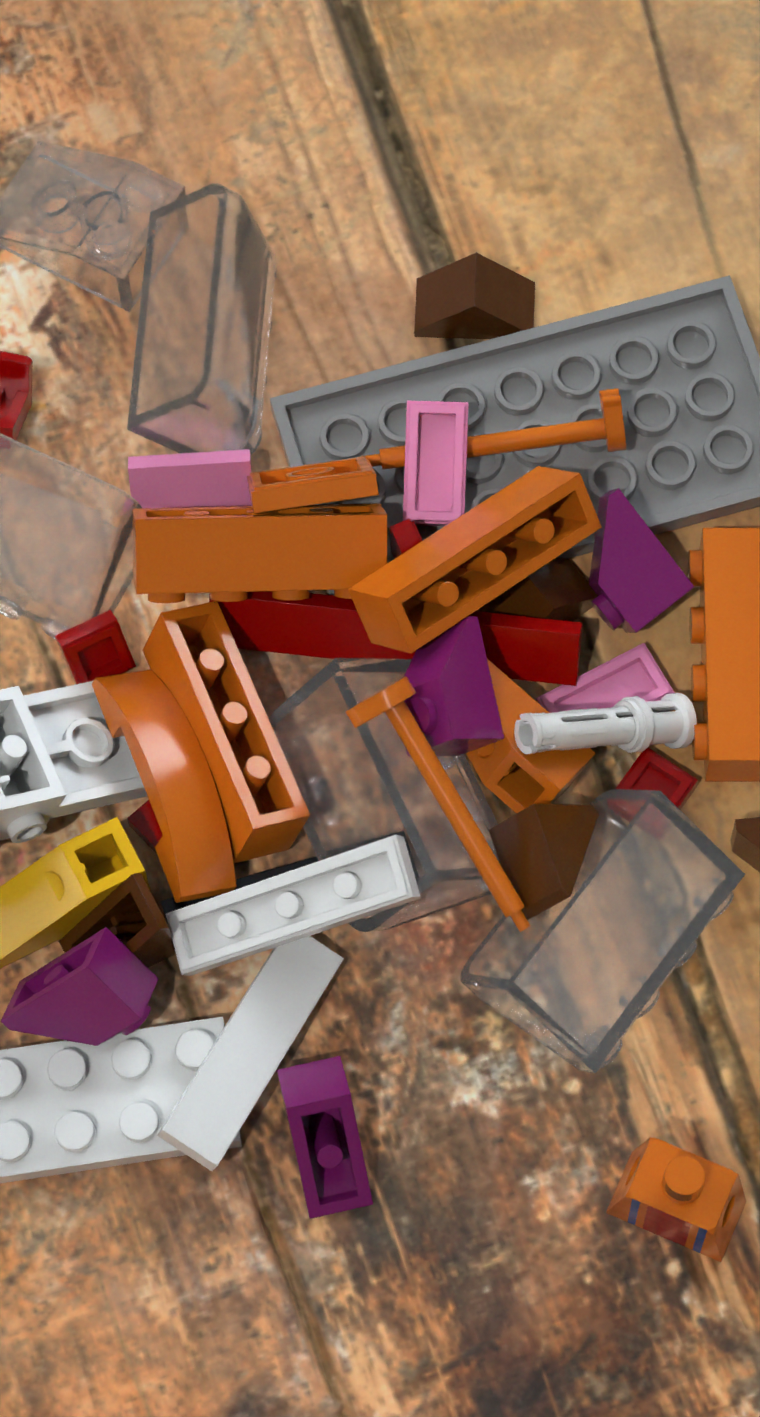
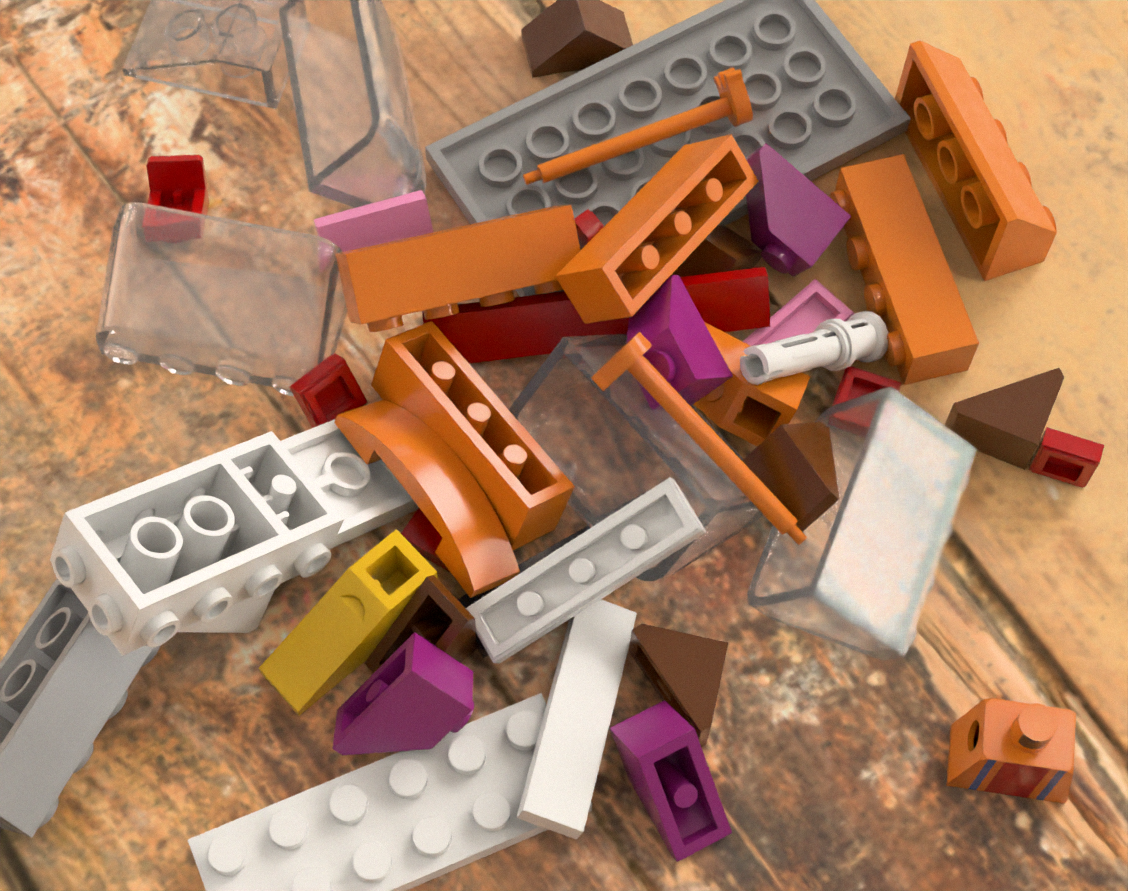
camera: 20 degrees left, 5 degrees down
(312, 484) = (492, 199): orange tile -> none
(374, 1035) = (682, 671): none -> reddish brown slope
(435, 462) = (591, 161): bright pink tile -> none

